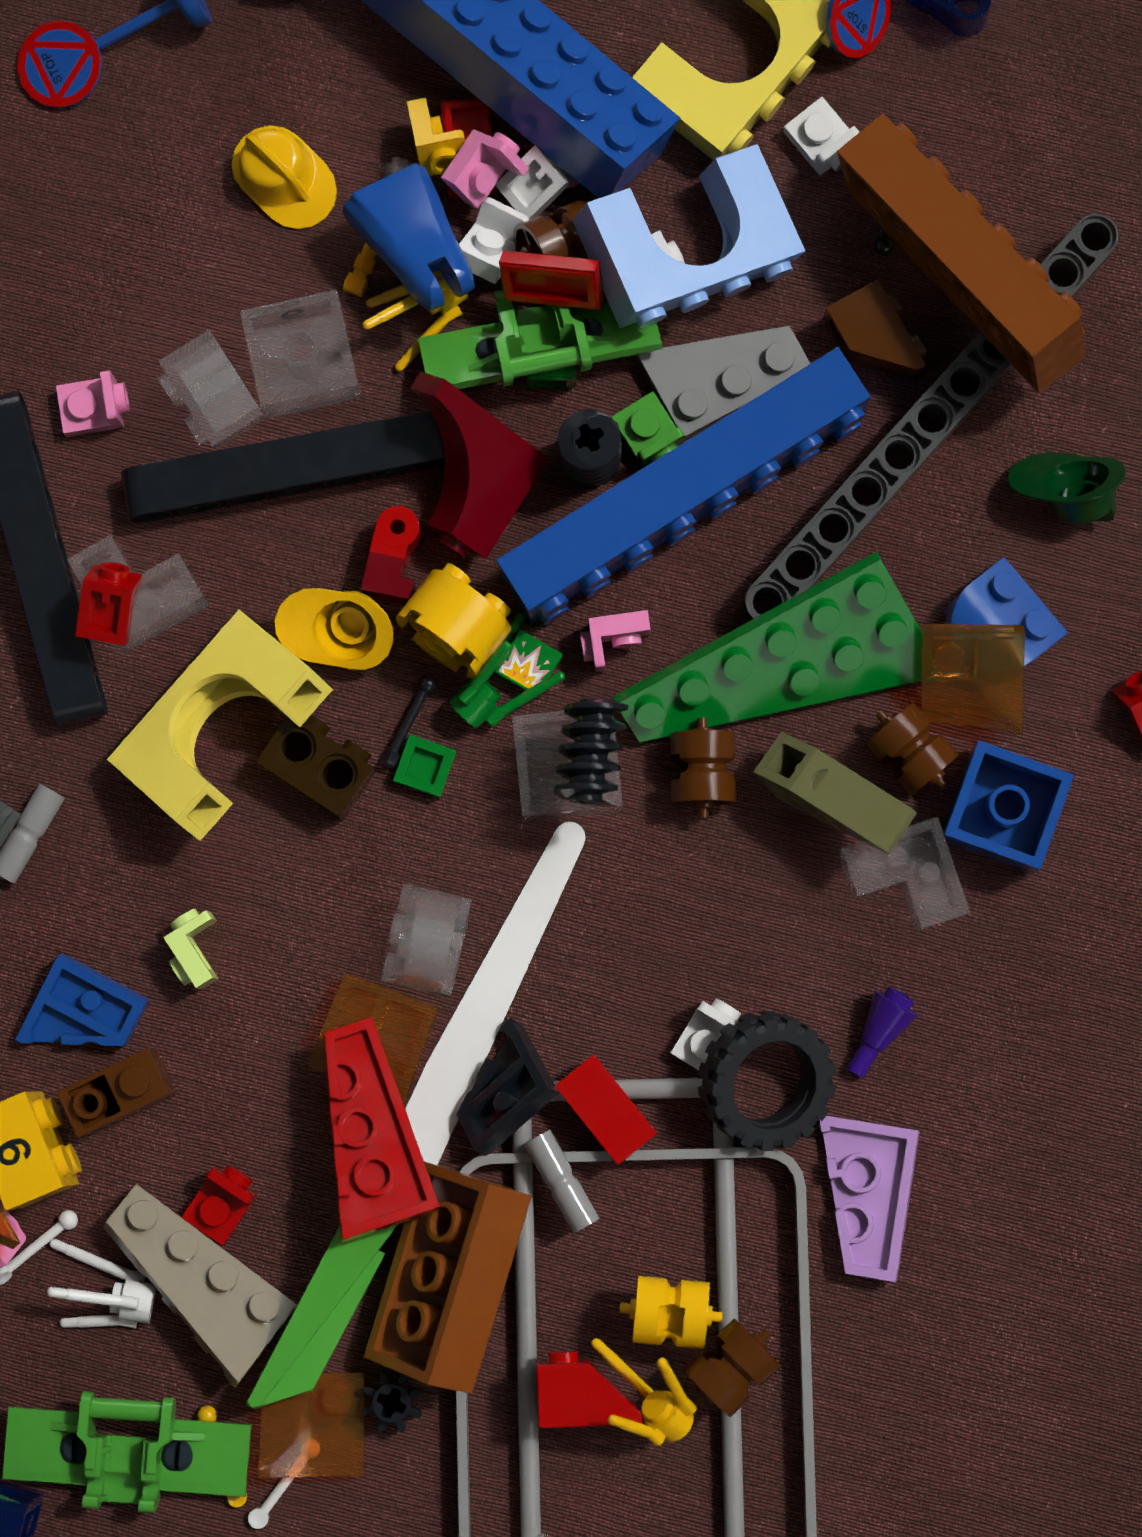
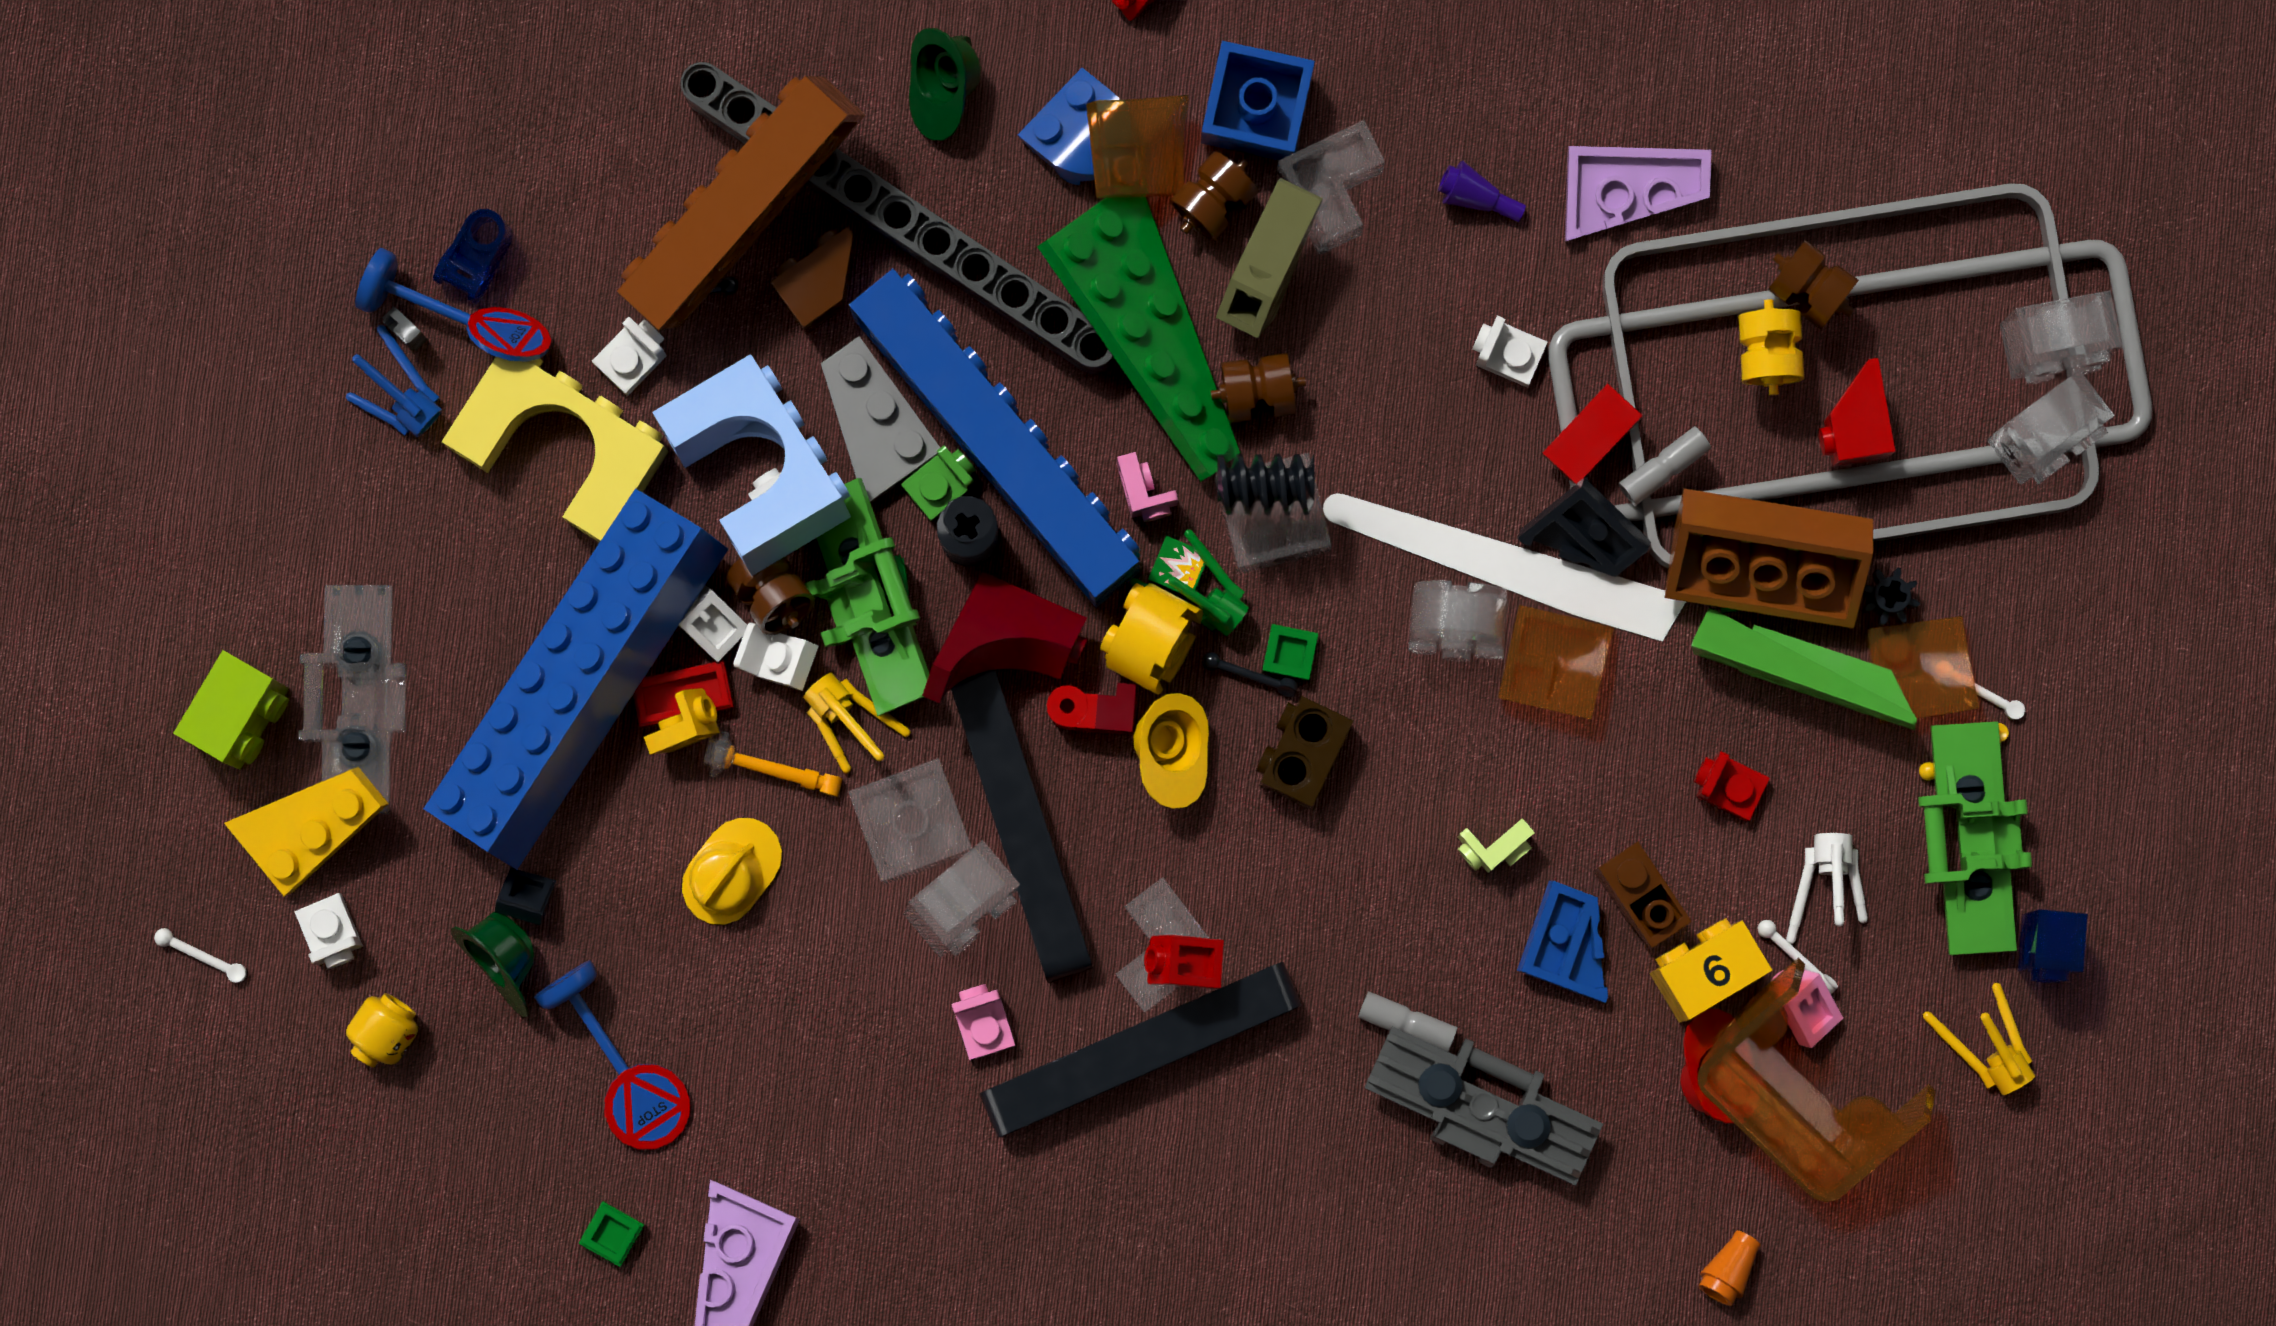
camera: 105 degrees left, 0 degrees up
(162, 745) = (1218, 842): light yellow arch -> none
(210, 1289) = (1814, 778): dark tan wing -> none
(374, 1147) = (1659, 640): red wing -> none
(411, 234) = (786, 726): blue piece -> none
(480, 166) = (705, 675): bright pink bracket -> none
(551, 280) = (814, 586): red tile -> none
(665, 1412) = (1863, 340): yellow plant -> none
(803, 1109) = (1555, 251): black tyre -> none

